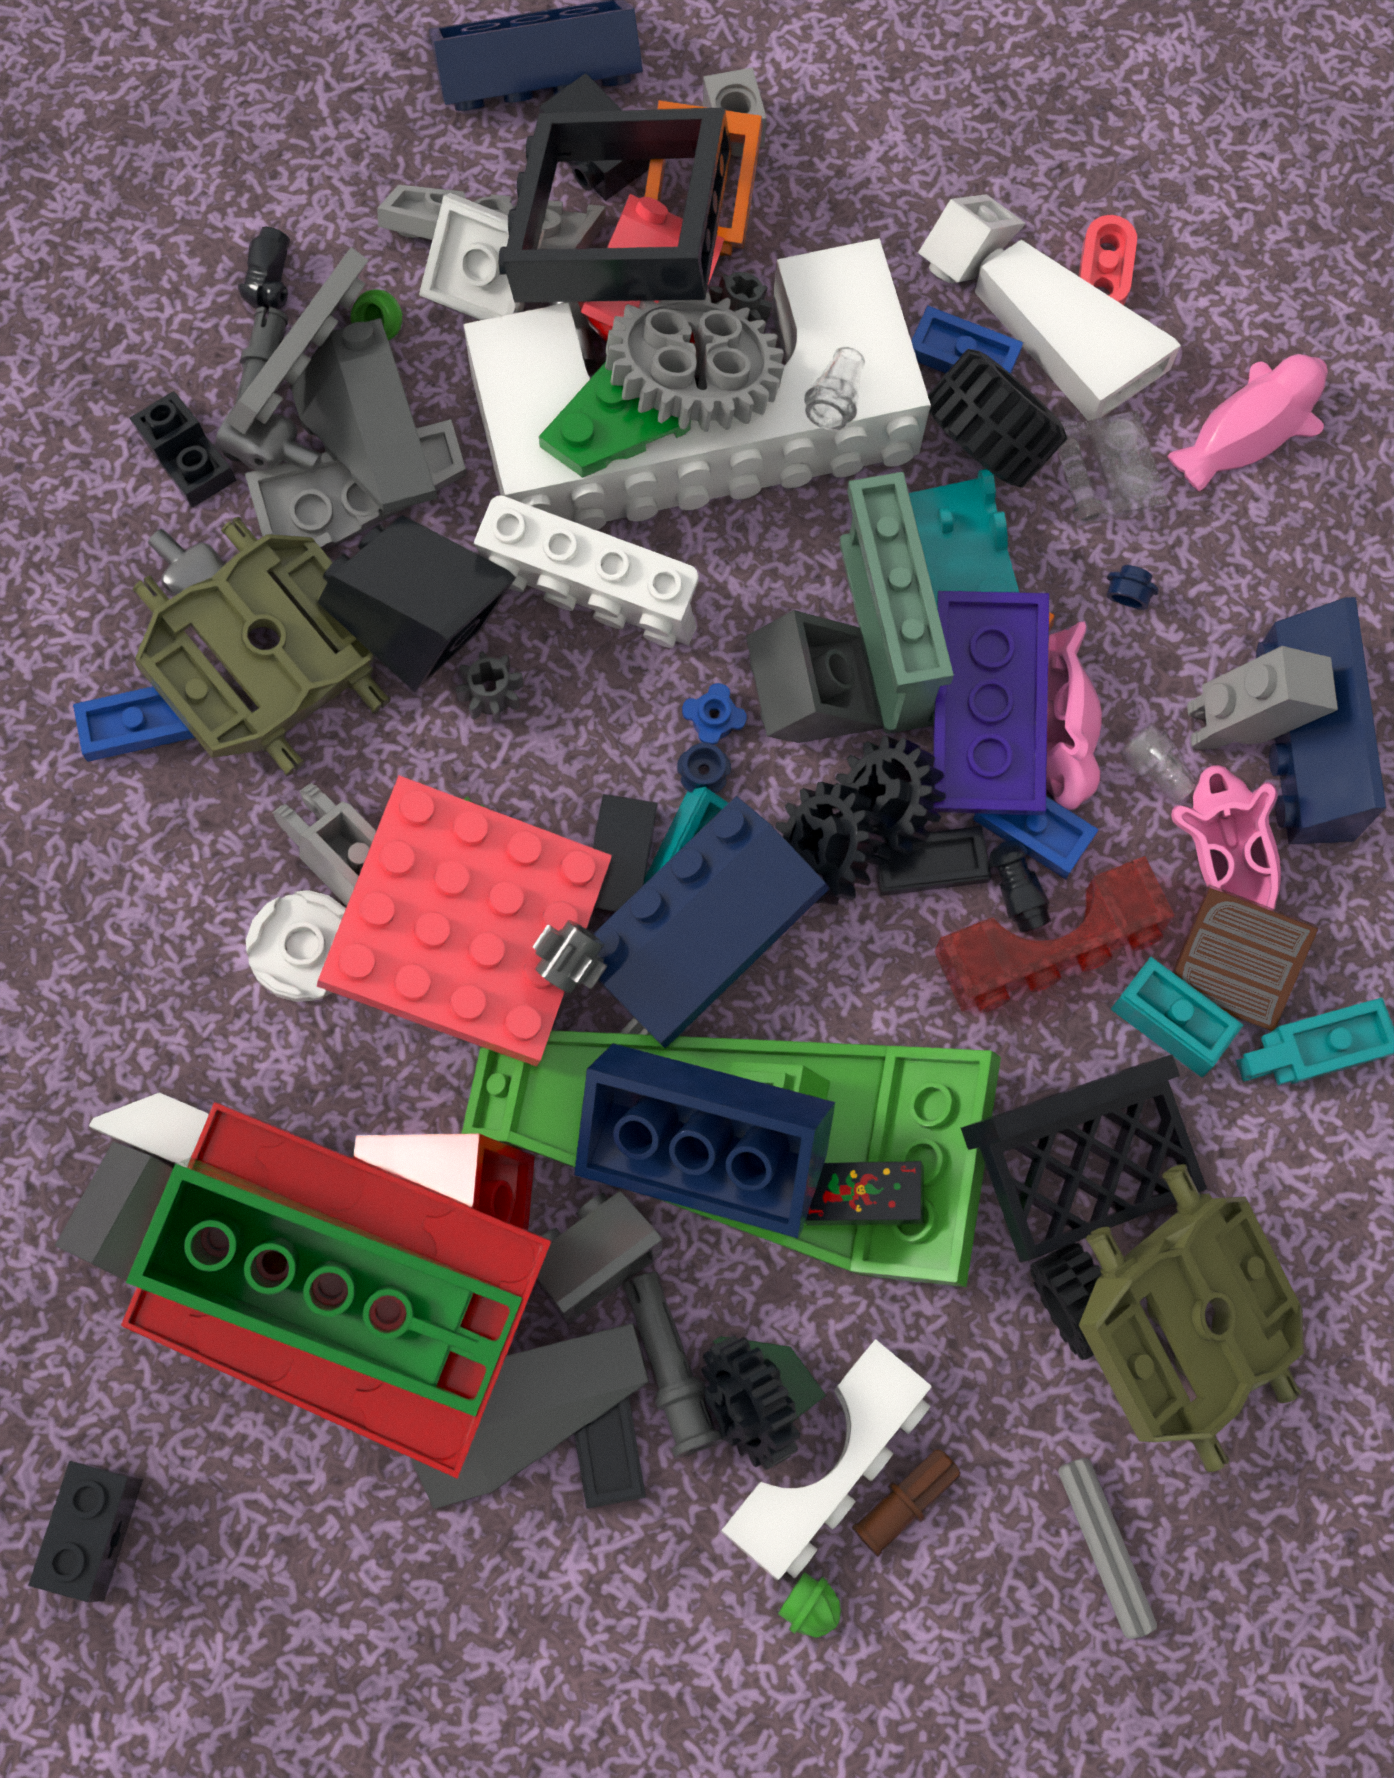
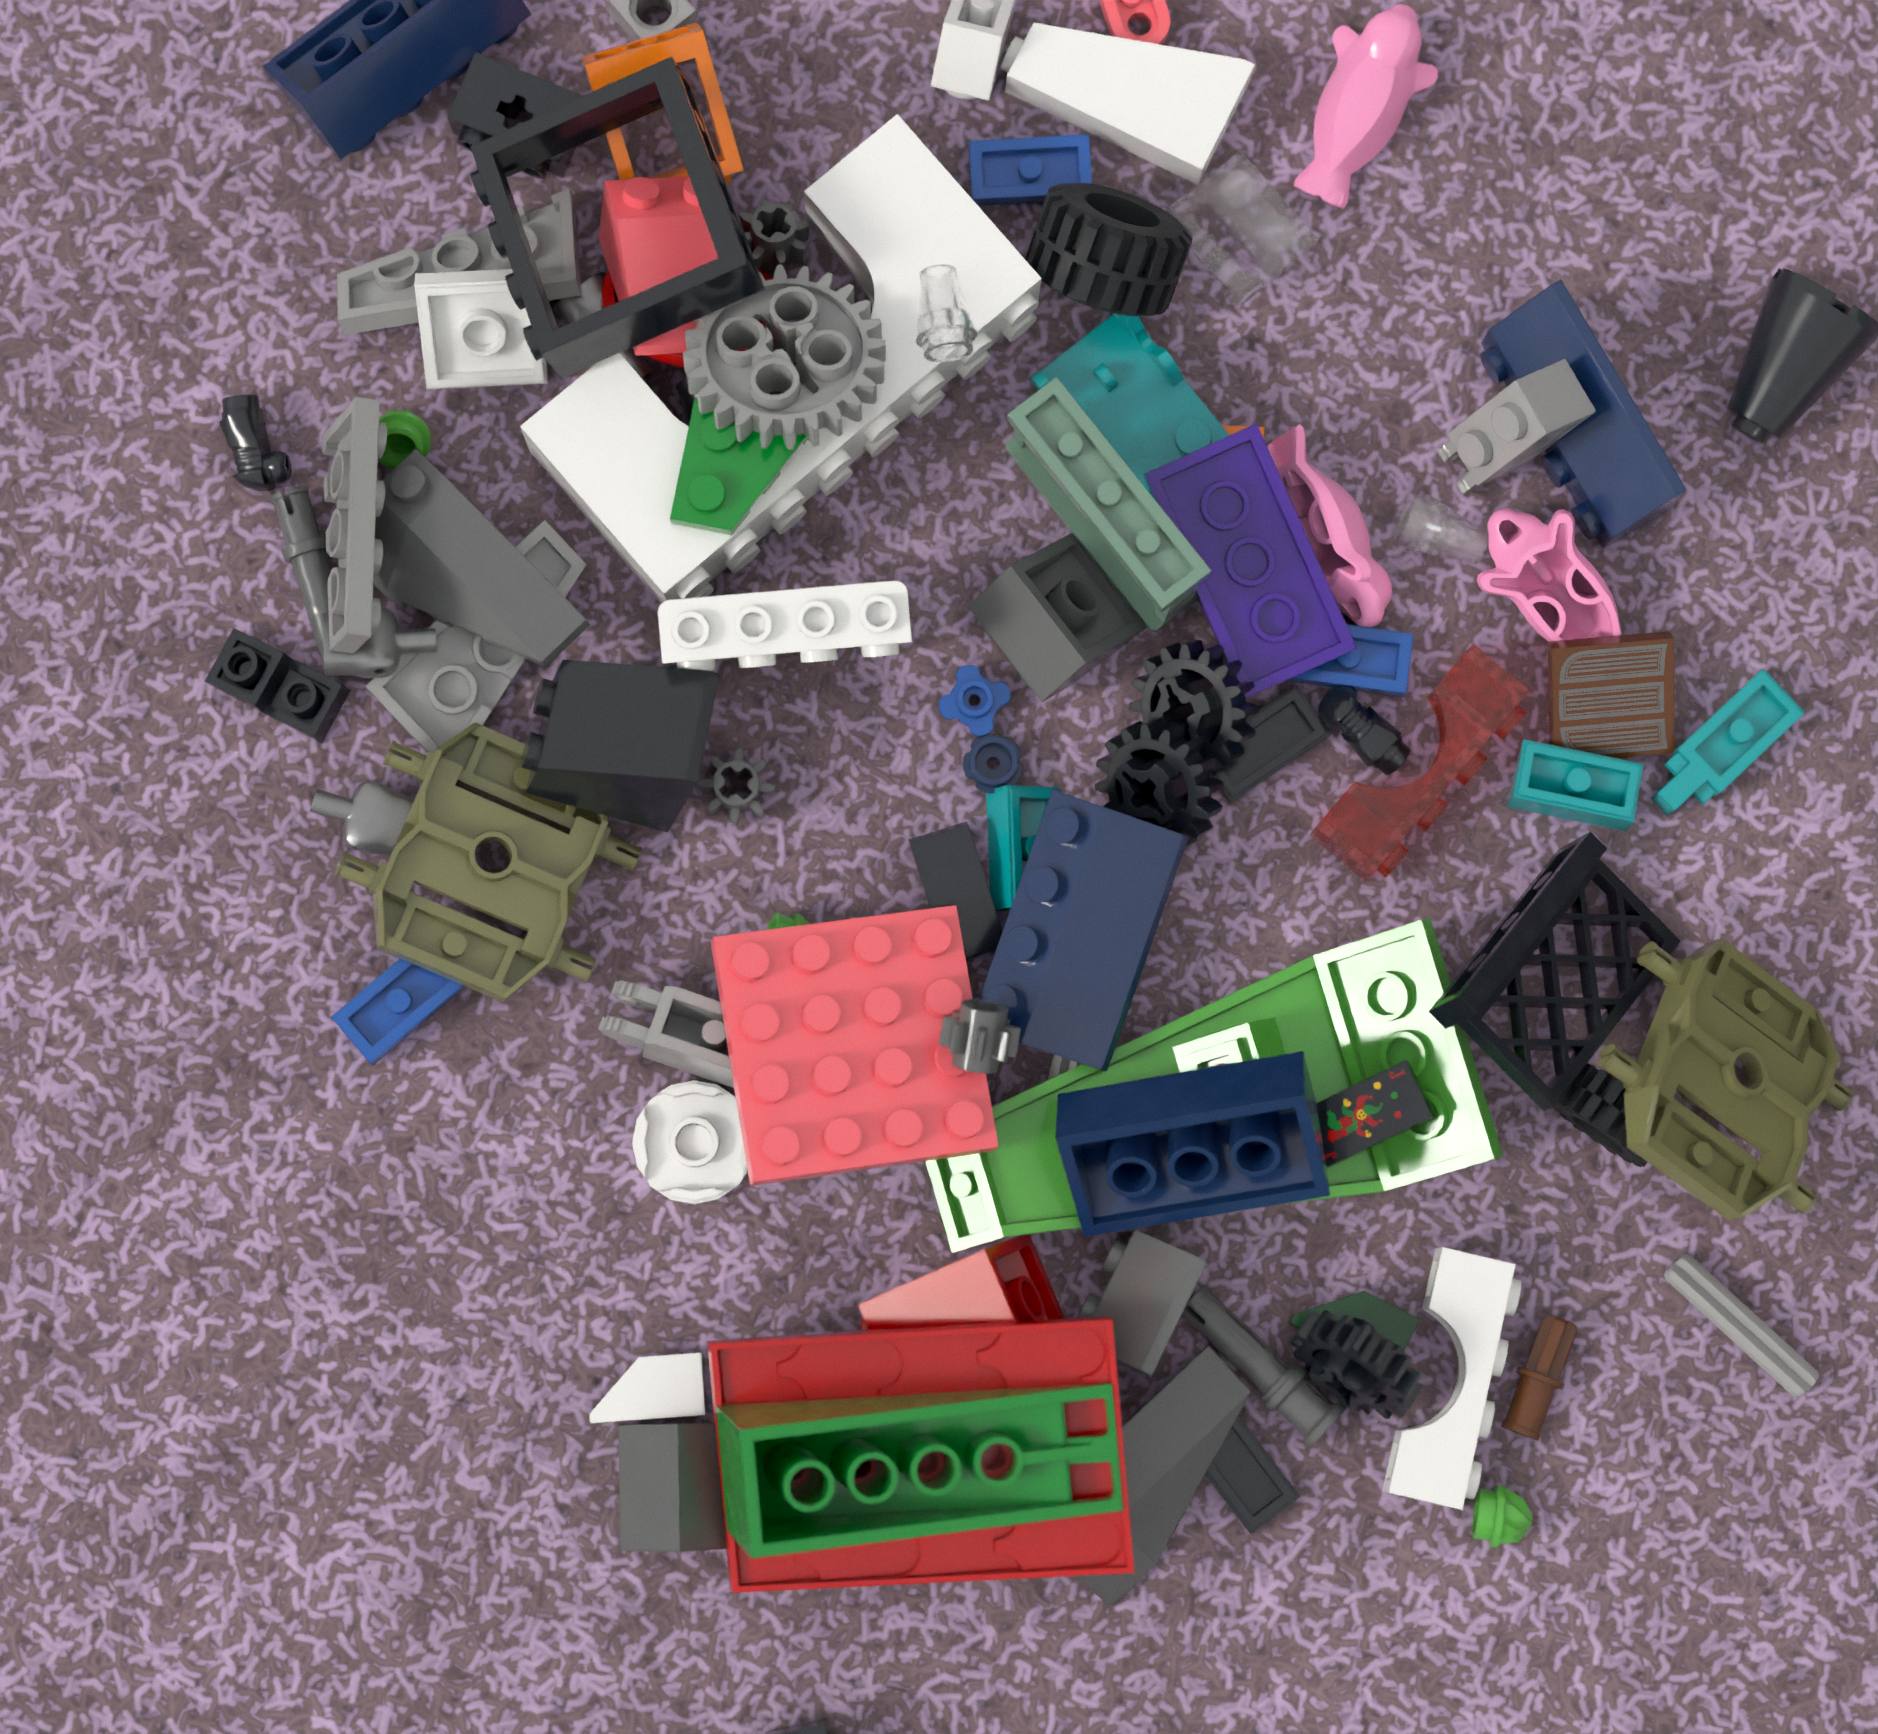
camera: 30 degrees left, 10 degrees up
(1131, 587) = (1325, 354): dark blue plate -> none

